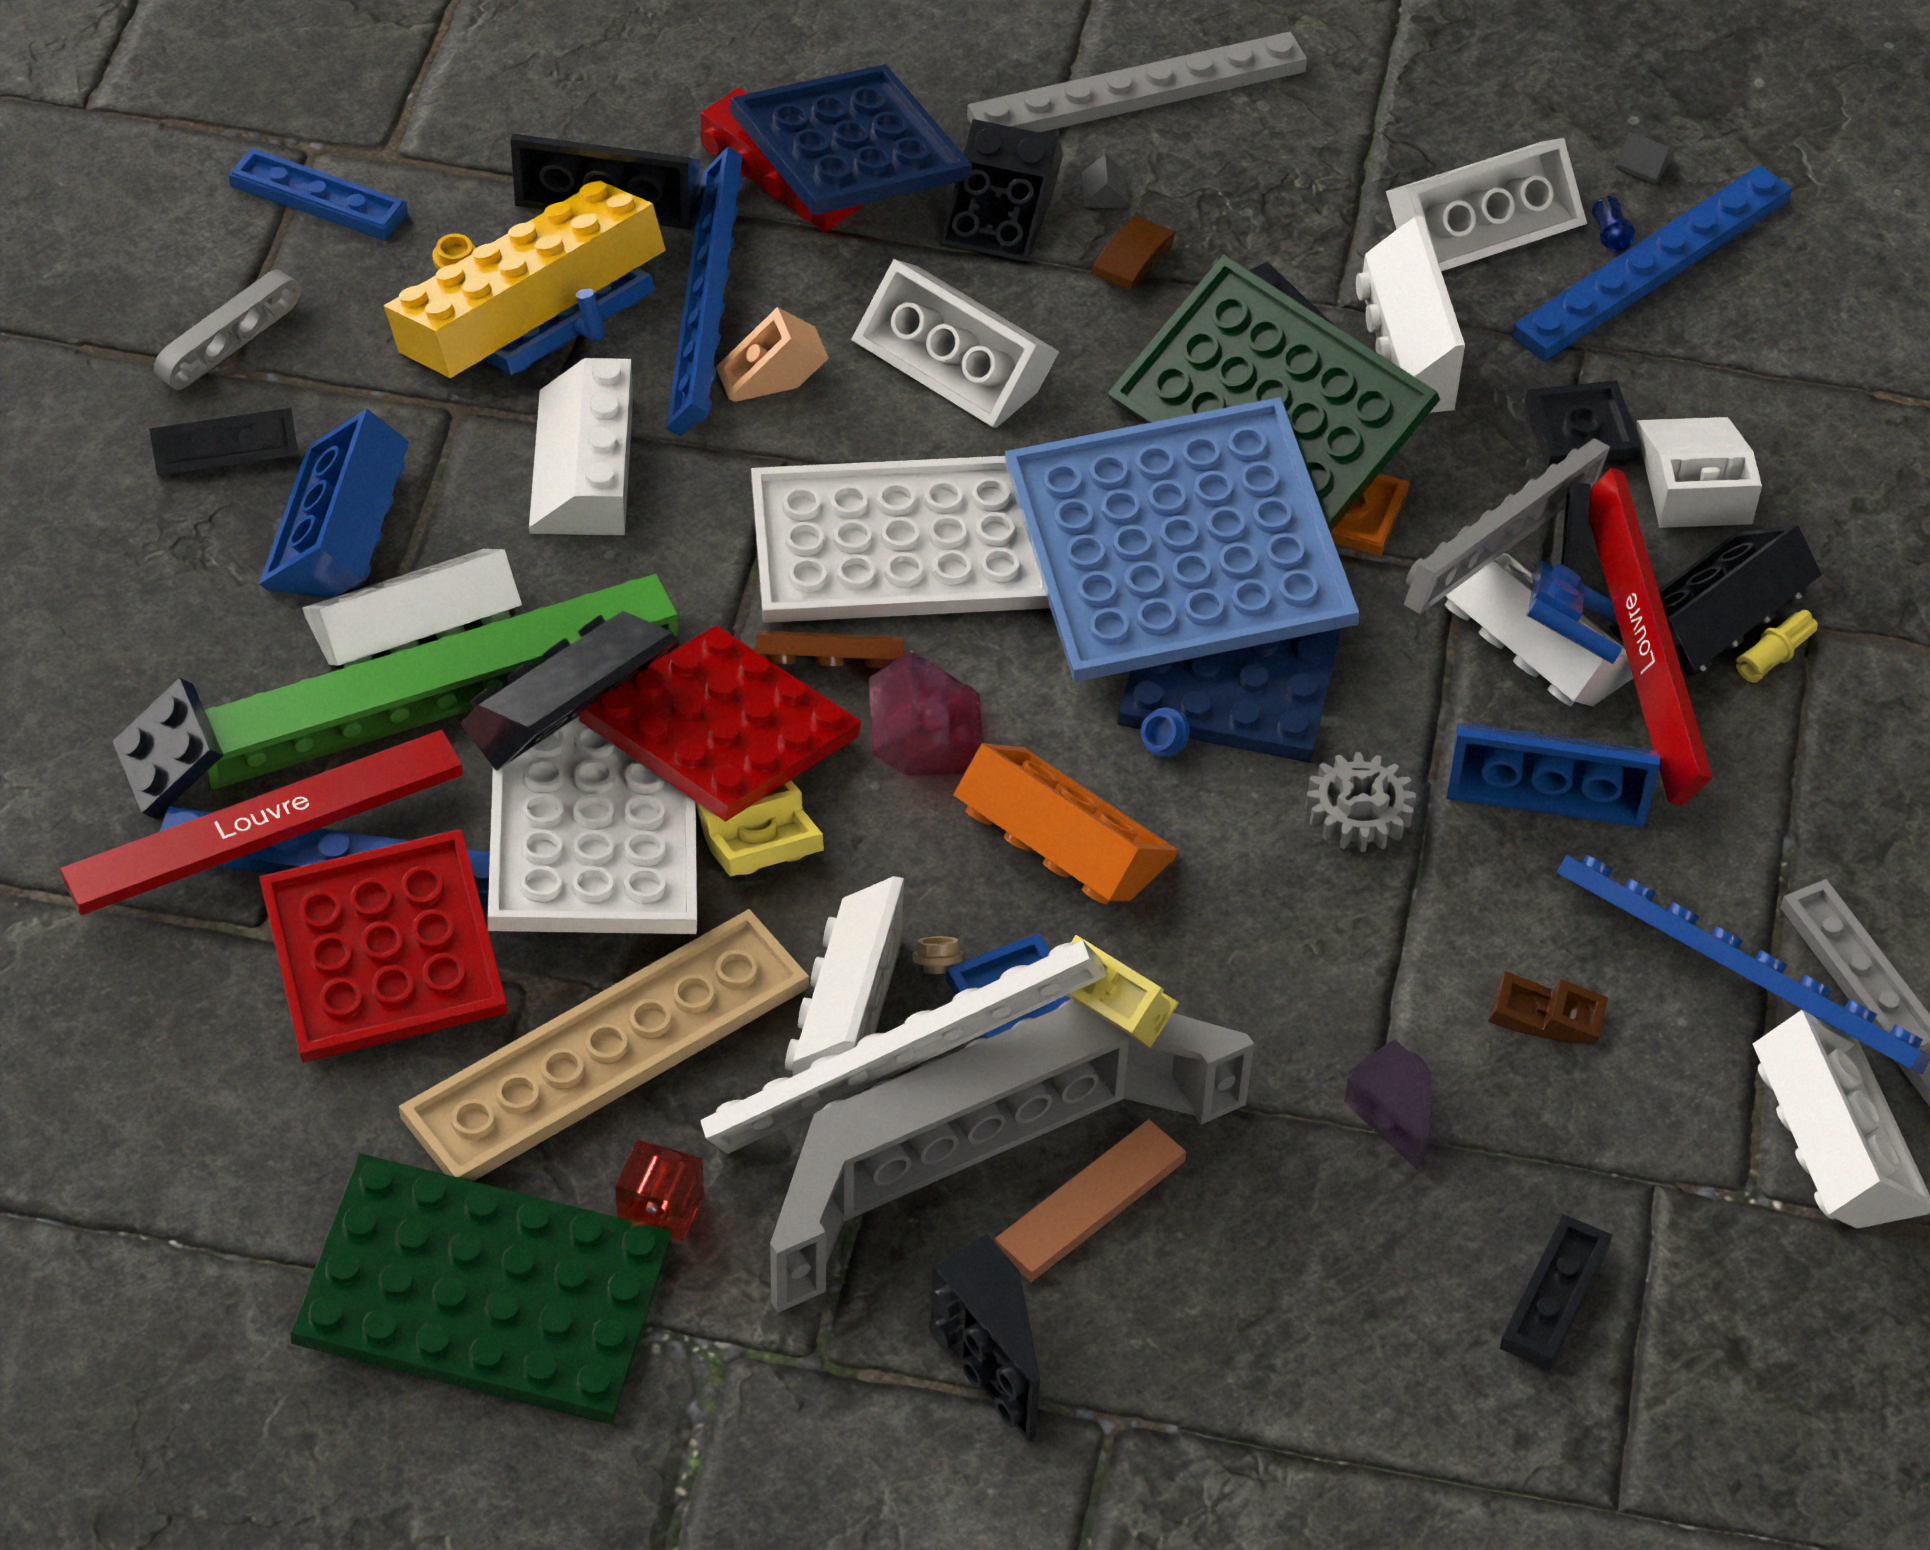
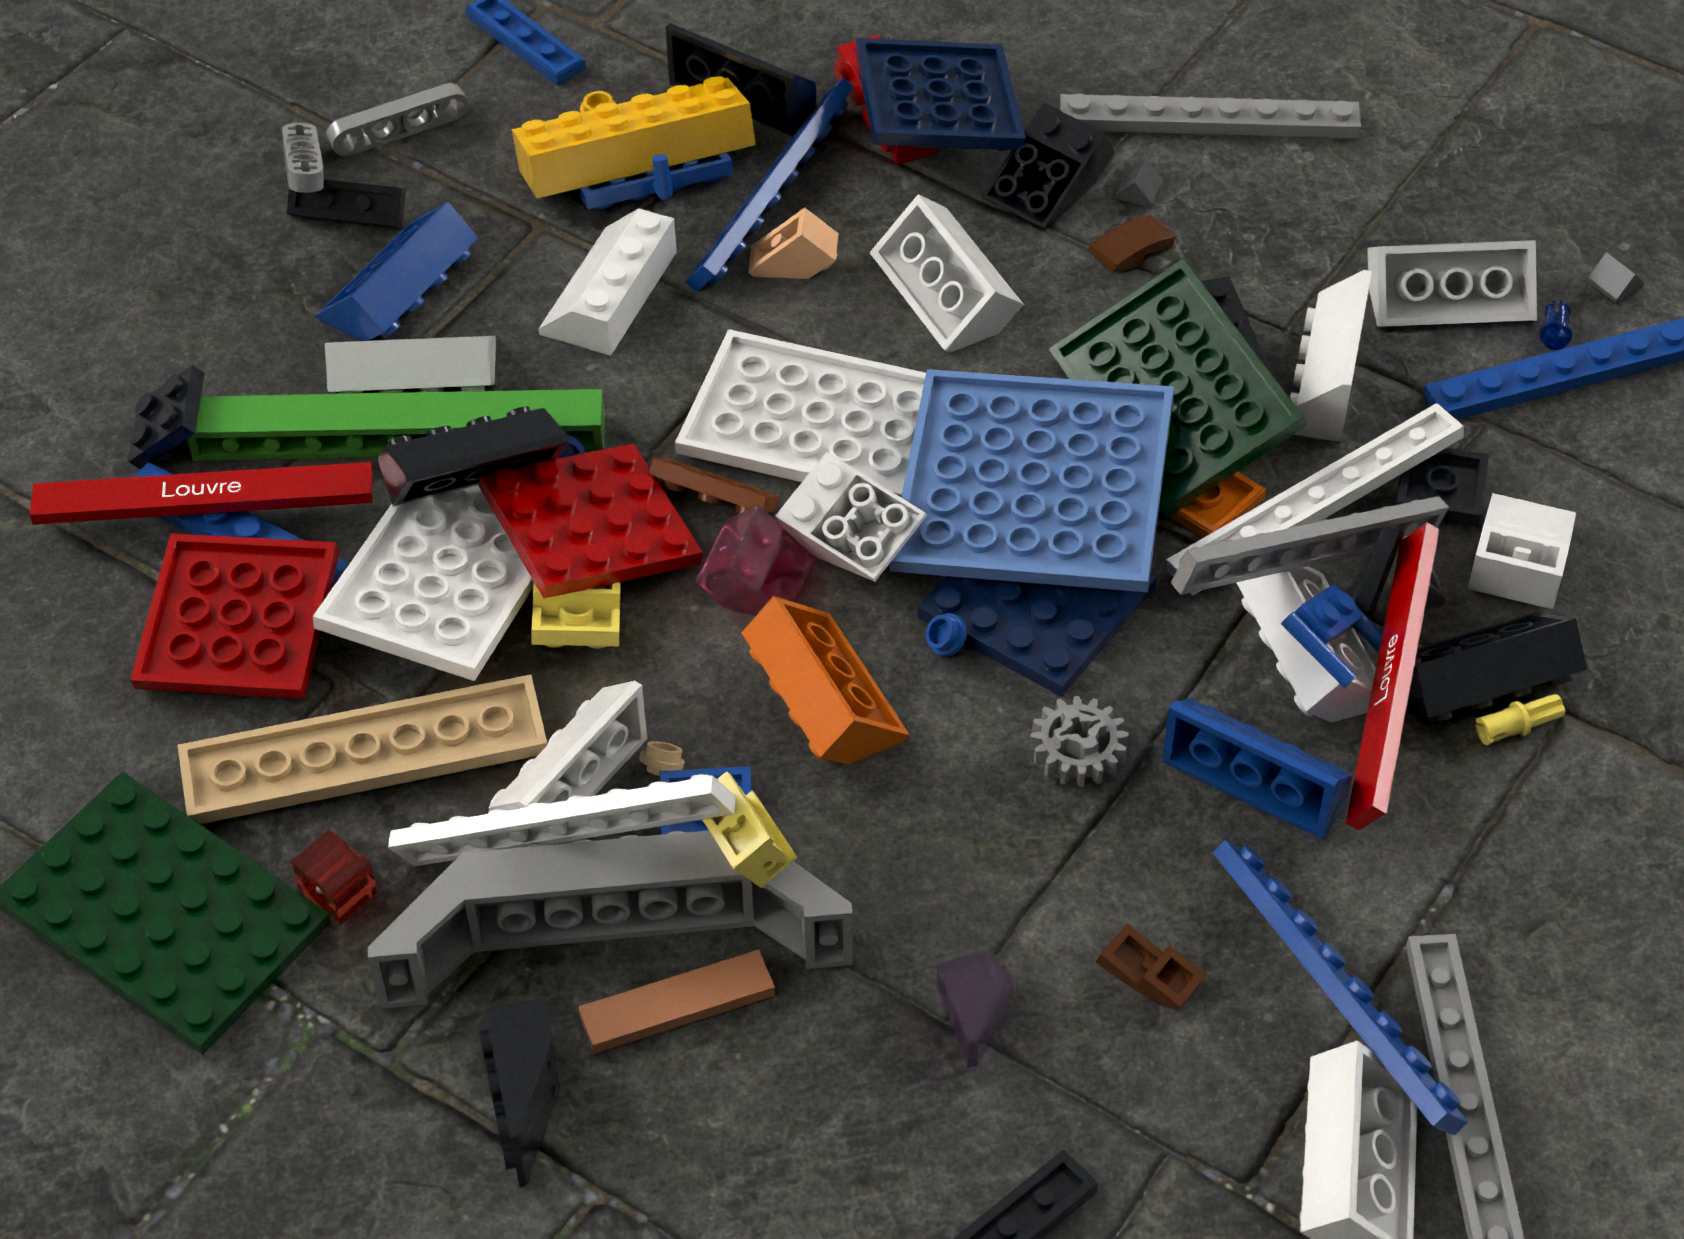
camera: 25 degrees right, 0 degrees up
(150, 403) = (302, 157): none -> light grey beam
(1011, 638) = (849, 518): none -> white slope
(1471, 474) = (1343, 480): none -> white plate

